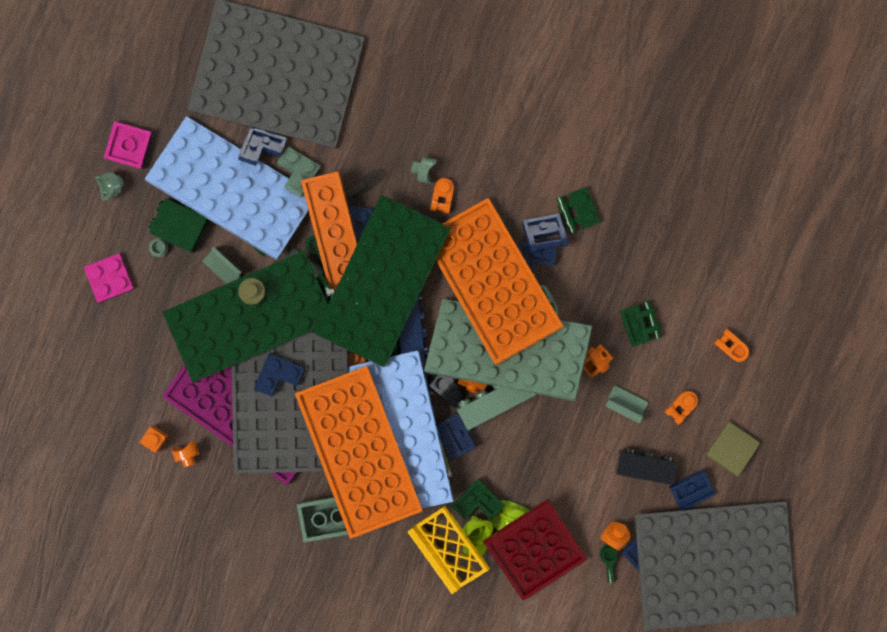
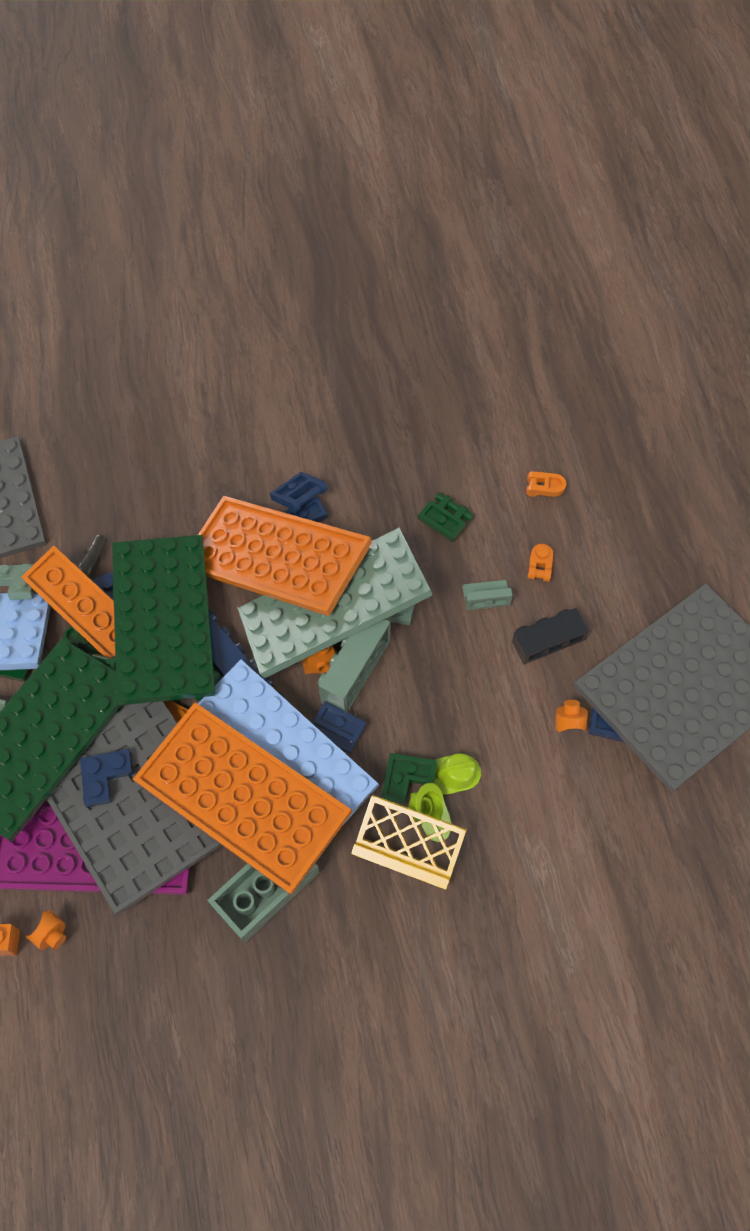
camera: 30 degrees left, 25 degrees down
(252, 291) = (23, 703): olive piece -> none
(422, 169) = (142, 506): sand green piece -> none
(443, 188) = (176, 516): orange plate -> none
(447, 389) = (295, 684): black plate -> none
(535, 550) = (500, 783): dark red plate -> none
(583, 207) = (320, 455): dark green plate -> none
(597, 361) = (431, 559): orange brick -> none
(609, 556) = (579, 744): dark green plate -> none
(692, 490) = (610, 629): dark blue plate -> none
(732, 449) = (617, 569): olive slope -> none

